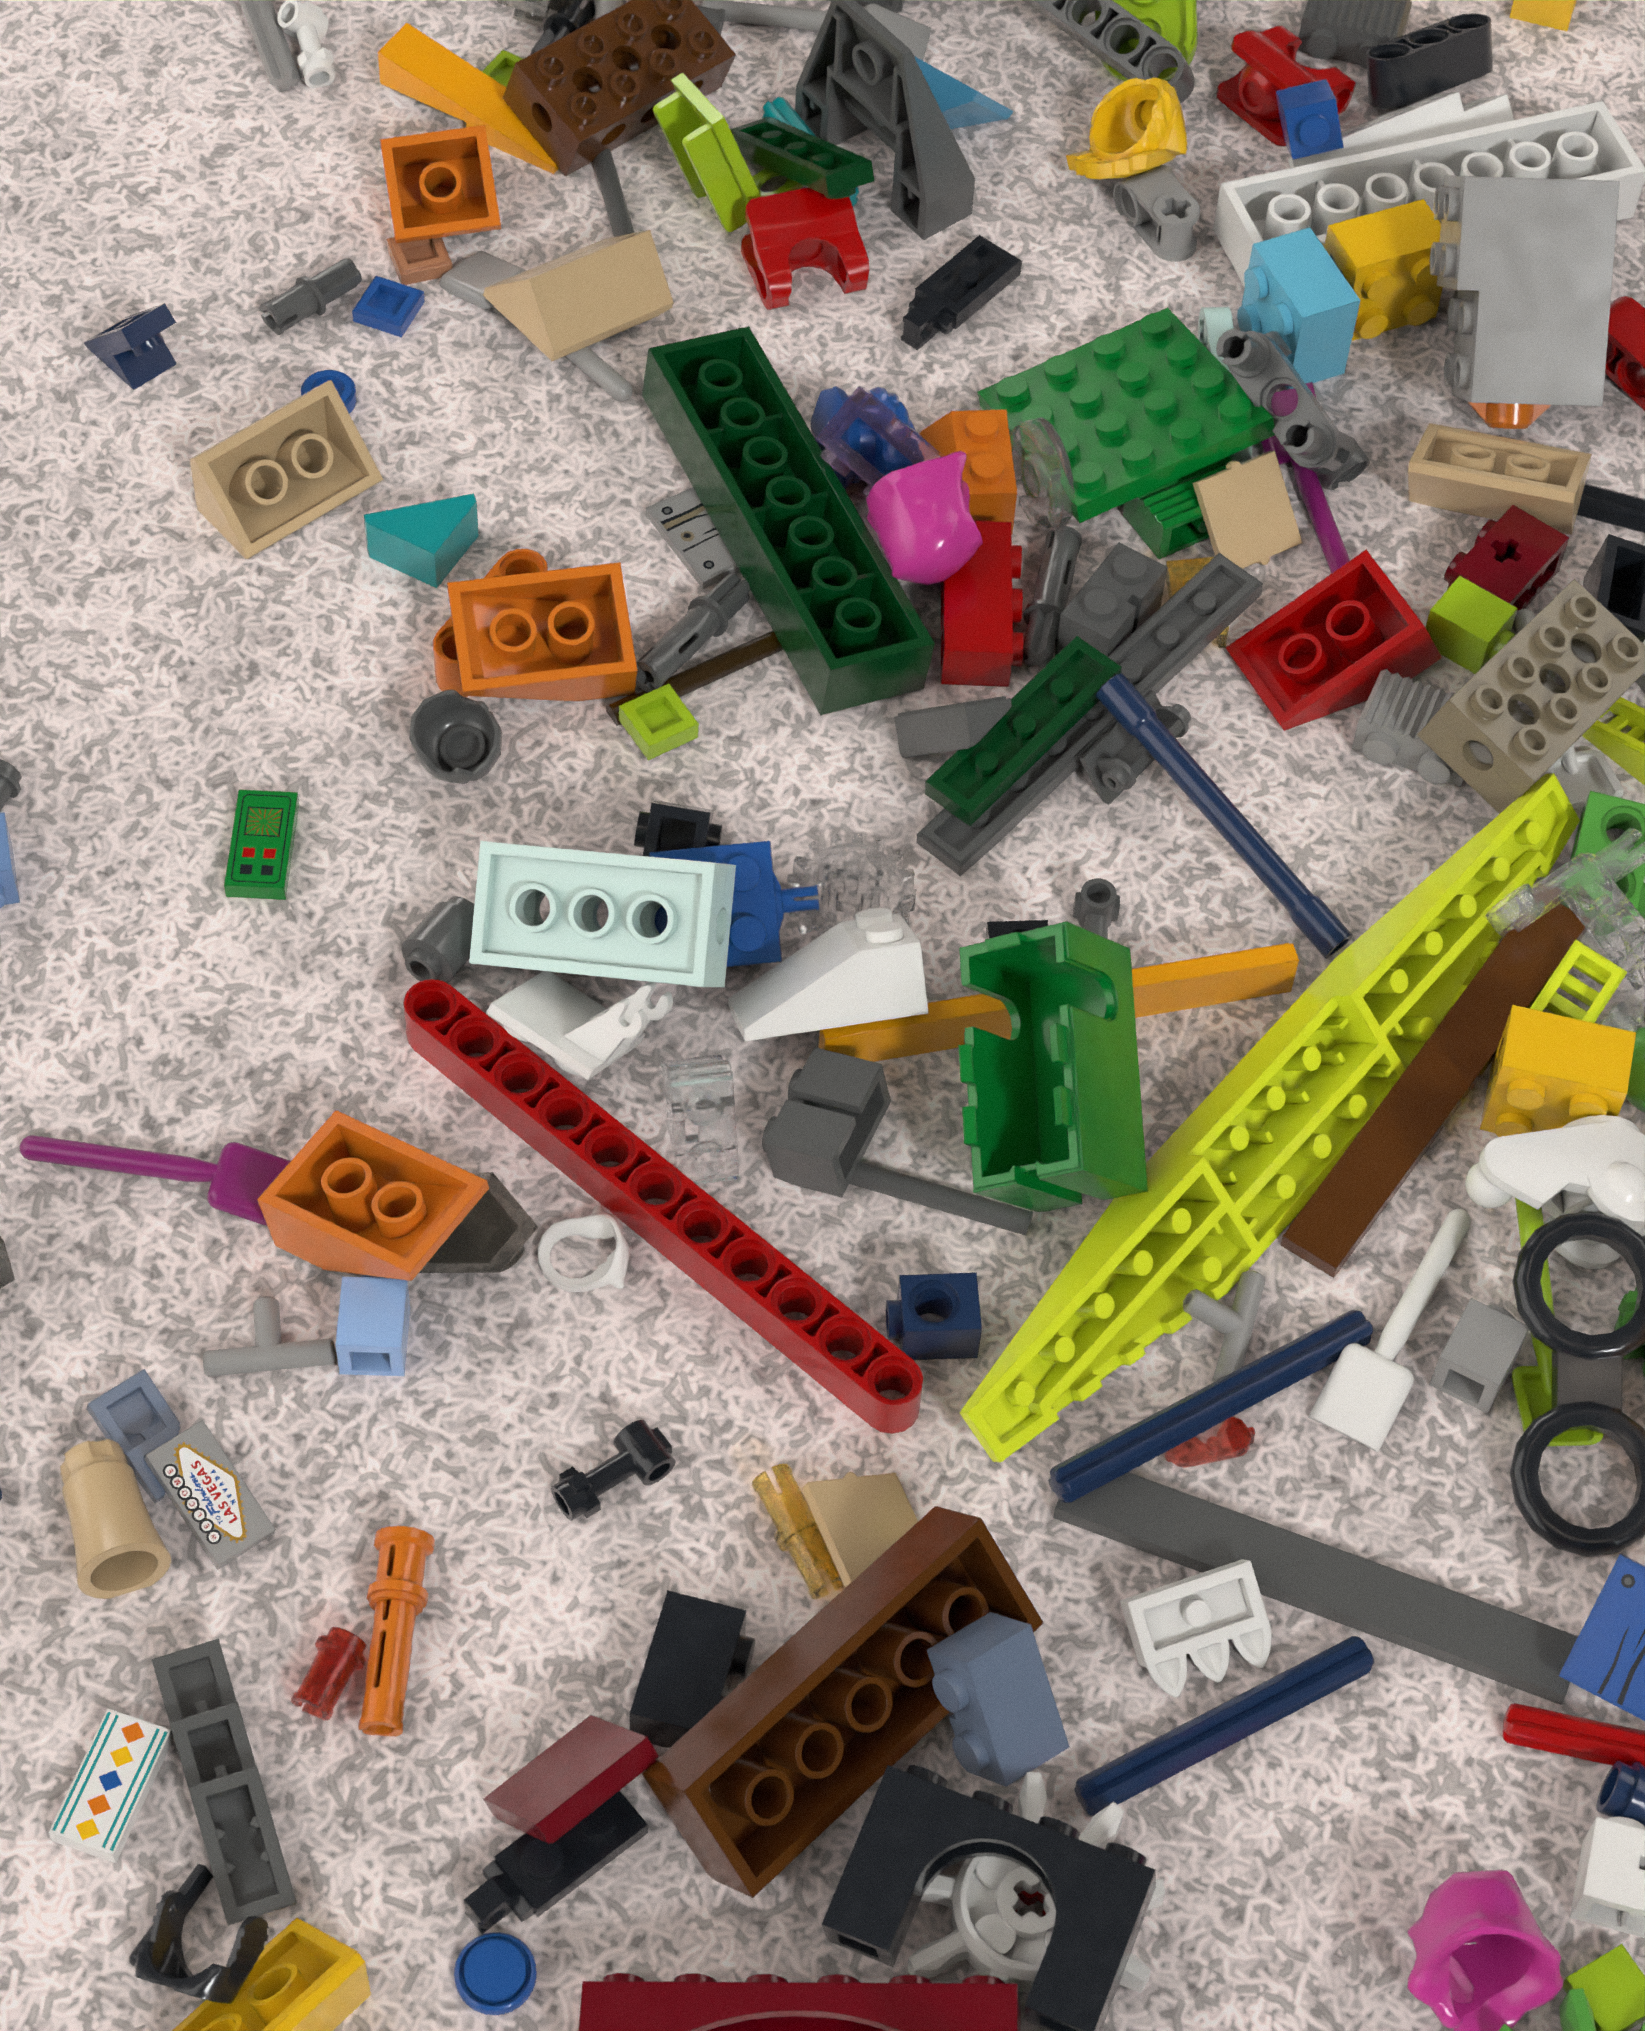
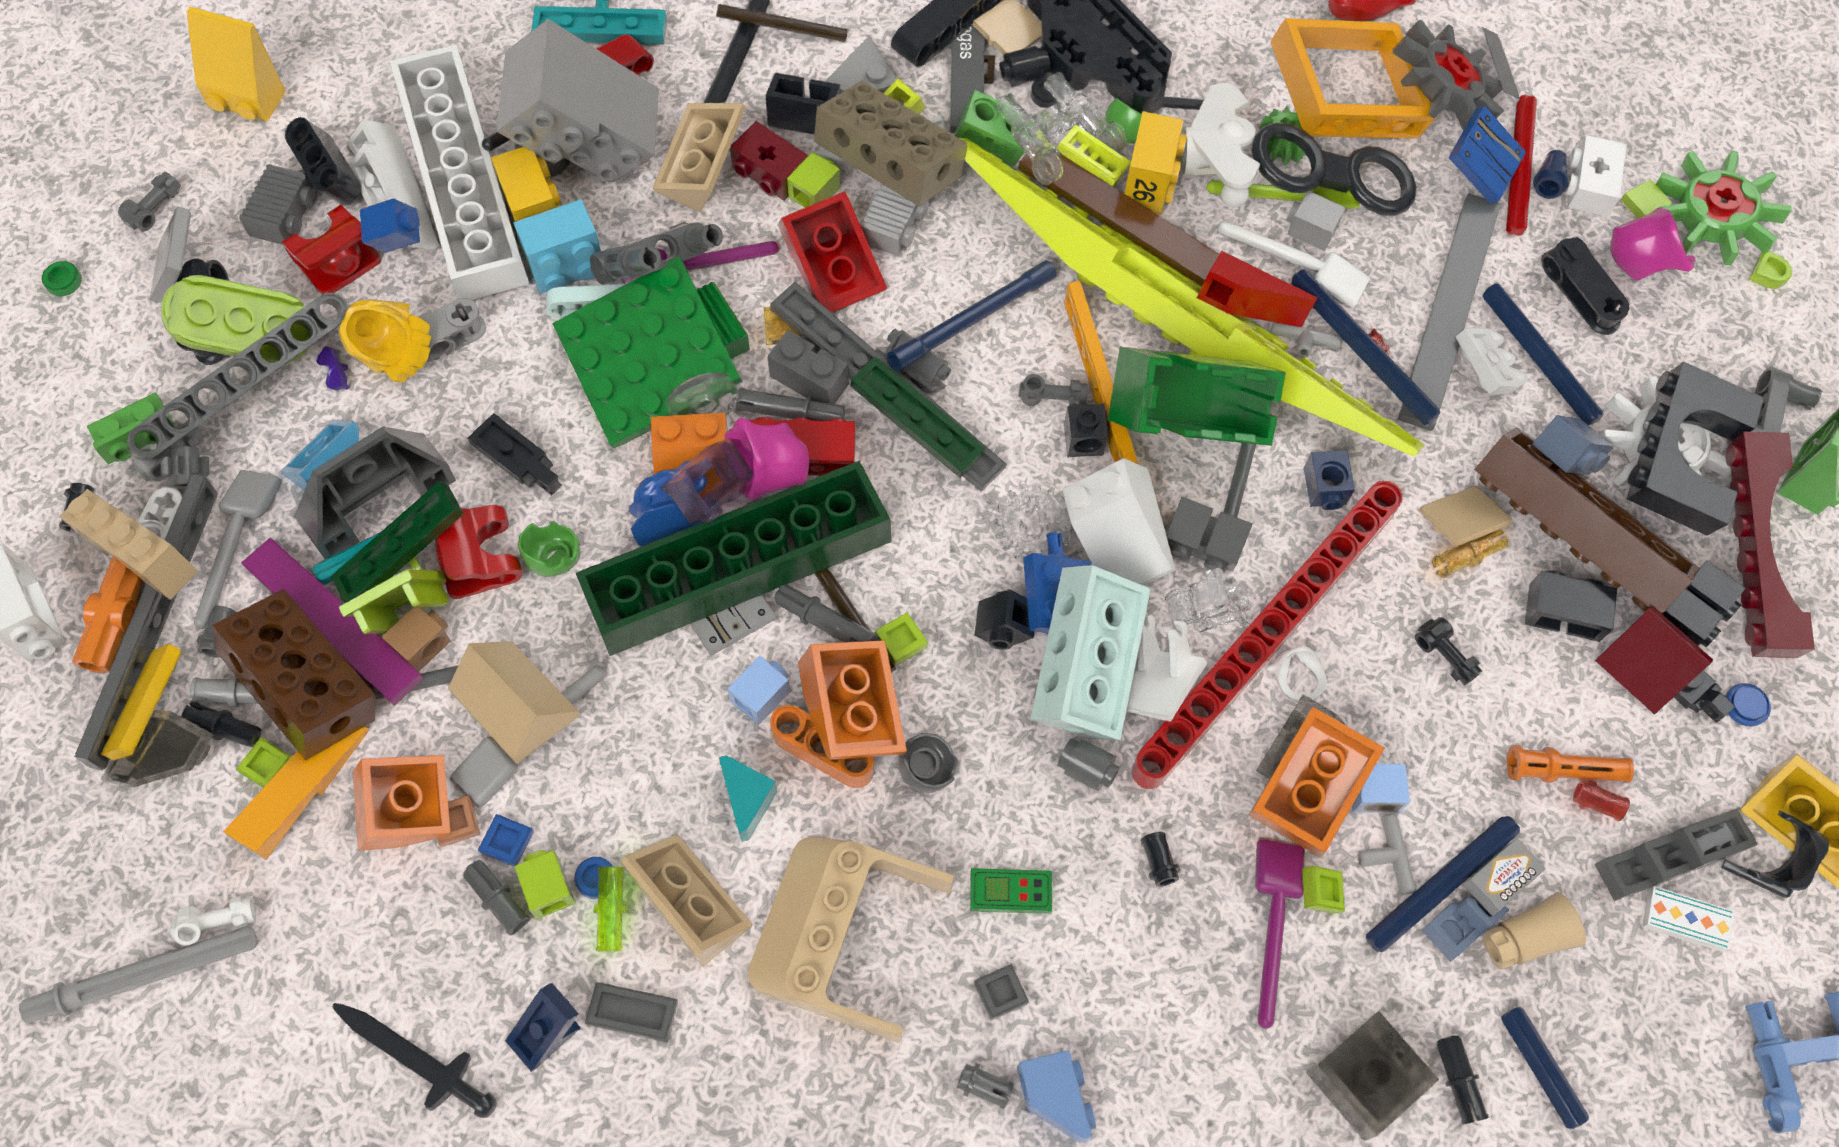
camera: 90 degrees left, 10 degrees up
(88, 261) = (445, 1079): none -> black sword
(117, 827) = (1001, 992): none -> dark grey tile
(144, 434) = (631, 1012): none -> dark grey tile
(207, 1404) = (1442, 884): none -> dark blue axle
(217, 1235) = (1323, 889): none -> lime tile
(233, 600) = (812, 921): none -> tan windscreen
(259, 401) = (610, 908): none -> clear neon green pin
(288, 1025) = (1160, 859): none -> black pin
(320, 335) = (544, 883): none -> lime brick
(580, 541) = (760, 689): none -> light blue brick
(671, 200) = (418, 637): none -> medium nougat brick
(689, 1913) = (1704, 604): none -> piece
(738, 96) = (363, 652): none -> magenta tile
(805, 312) = (538, 542): none -> bright green hair
(948, 726) = (909, 460): dark grey slope -> none
(1082, 105) = (336, 377): none -> dark purple piece
(1248, 511) = (729, 289): tan piece -> none
(1294, 1200) = (1253, 293): none -> red slope
(1378, 1815) = (1586, 285): none -> black piece

